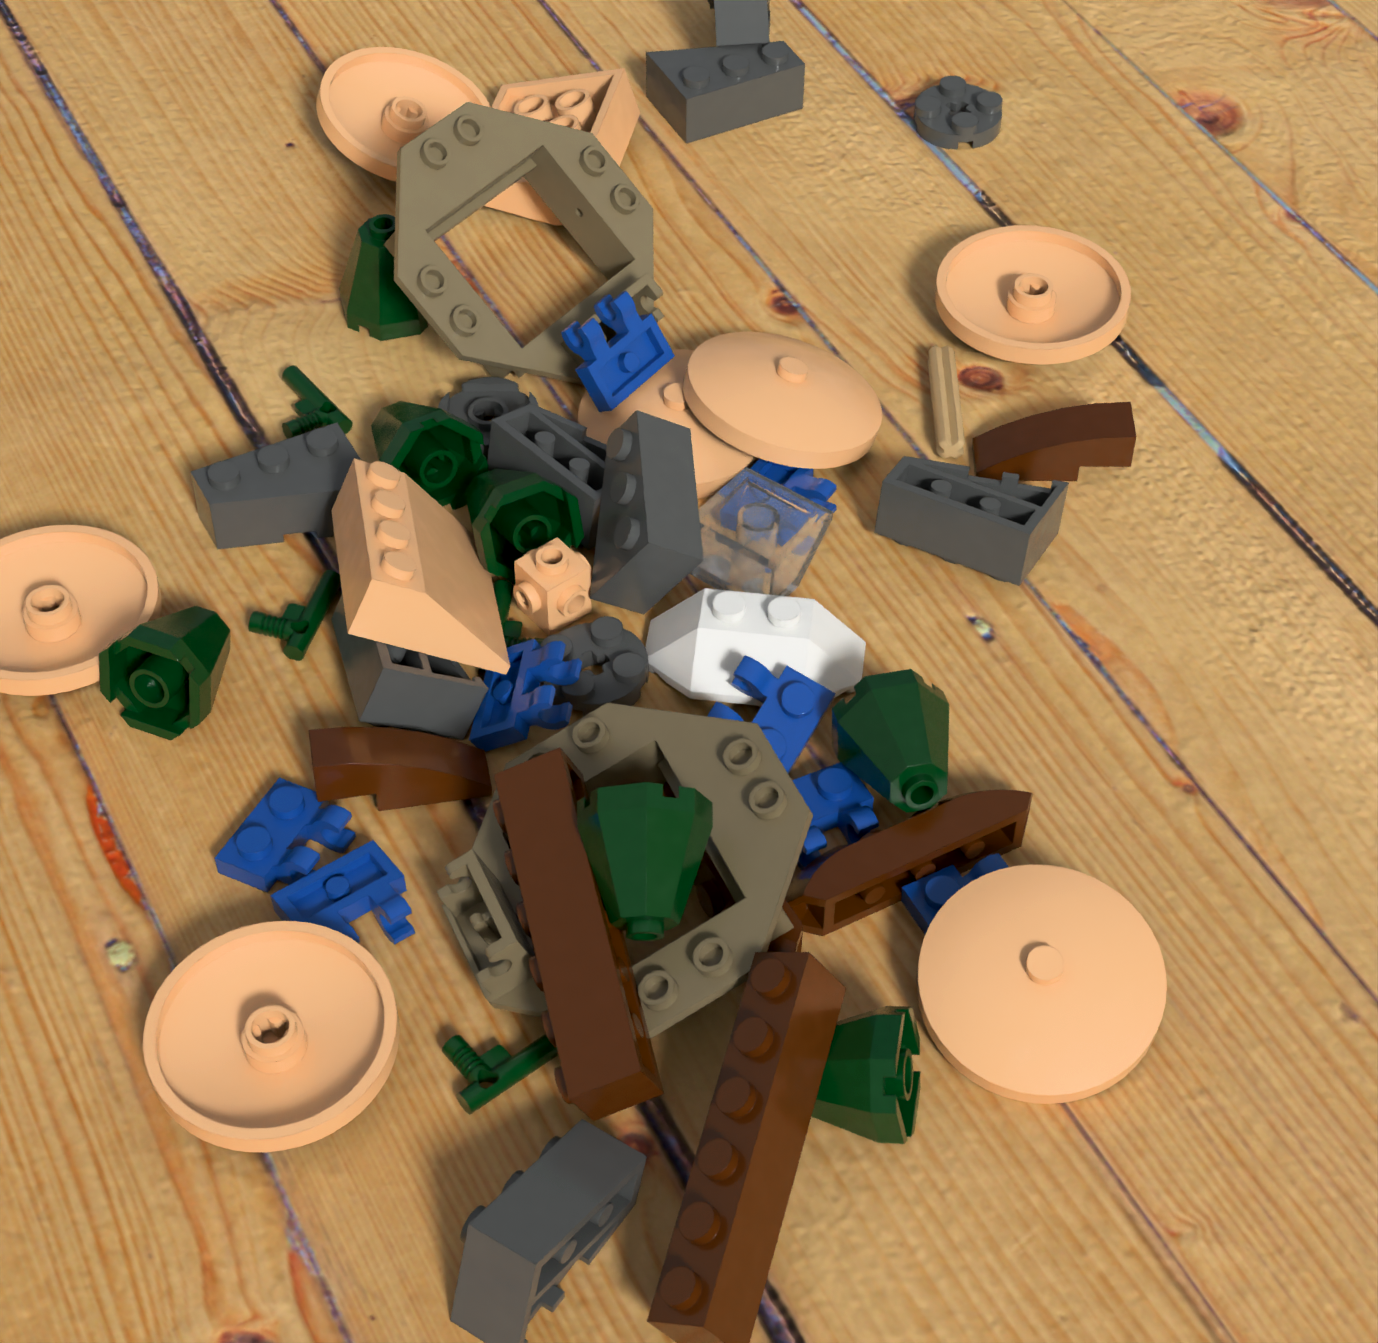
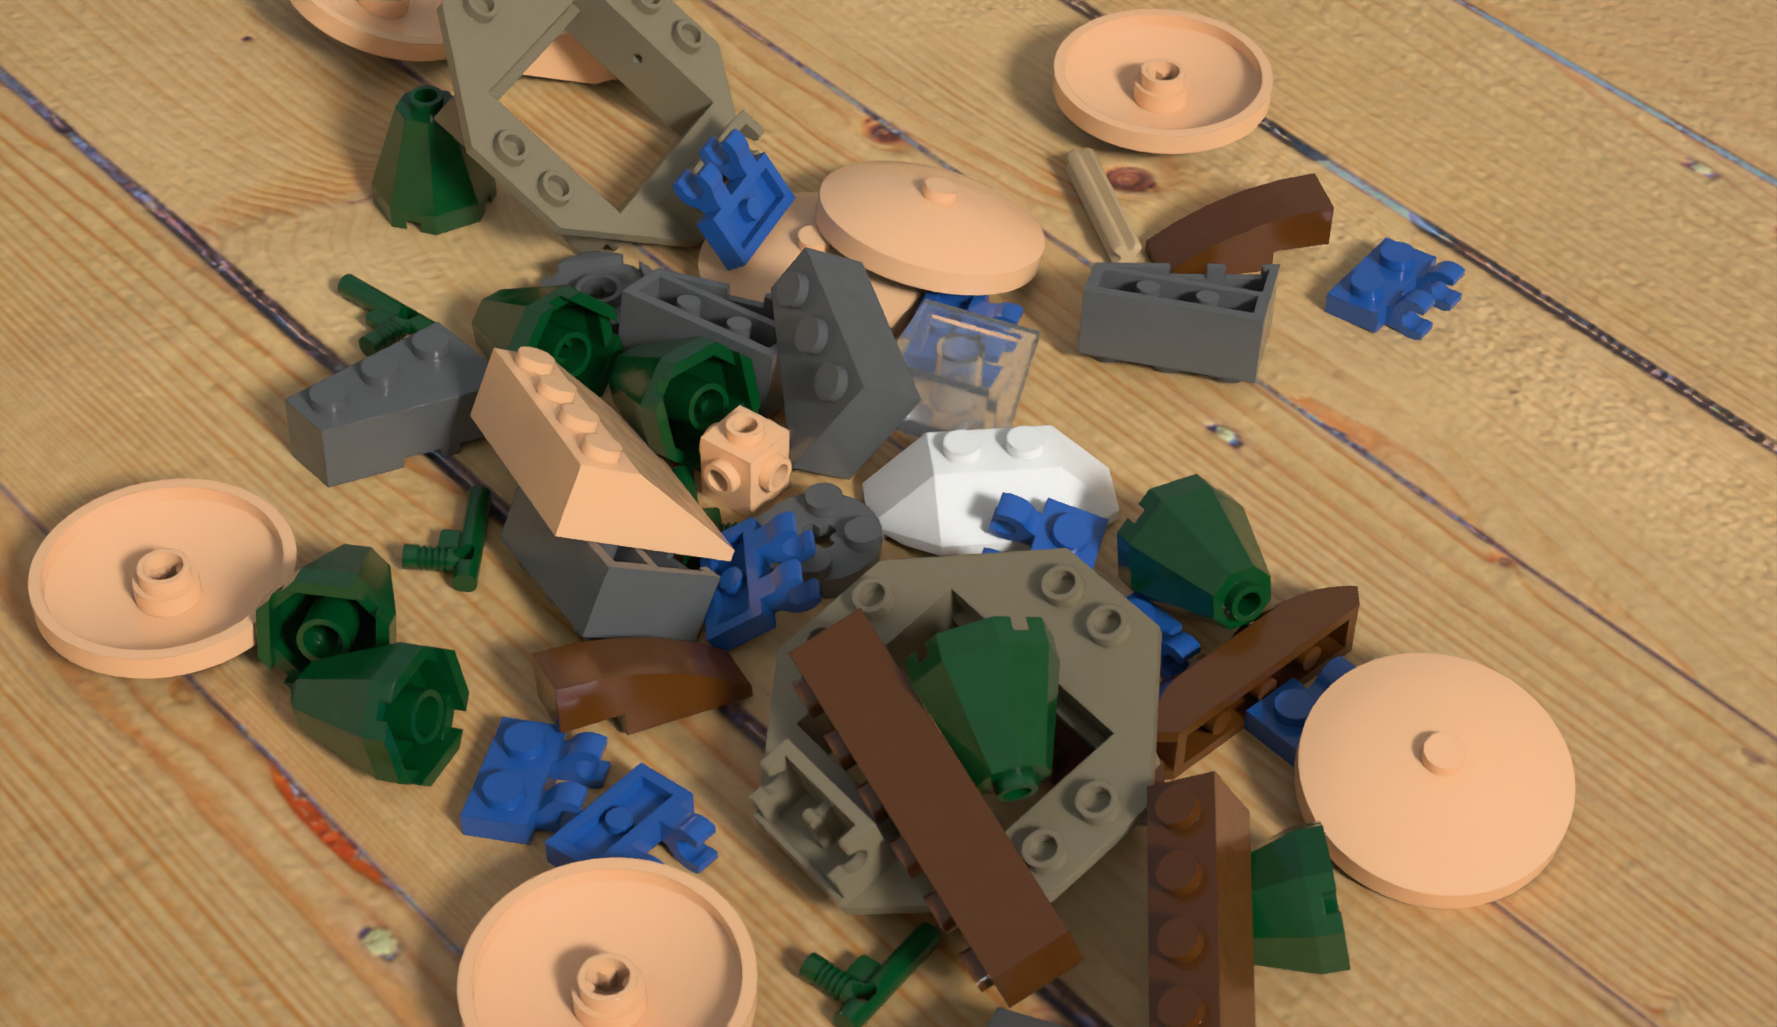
camera: 15 degrees left, 5 degrees down
(184, 758) = (385, 709): none -> dark green cone
(1175, 517) = (1393, 287): none -> blue plate

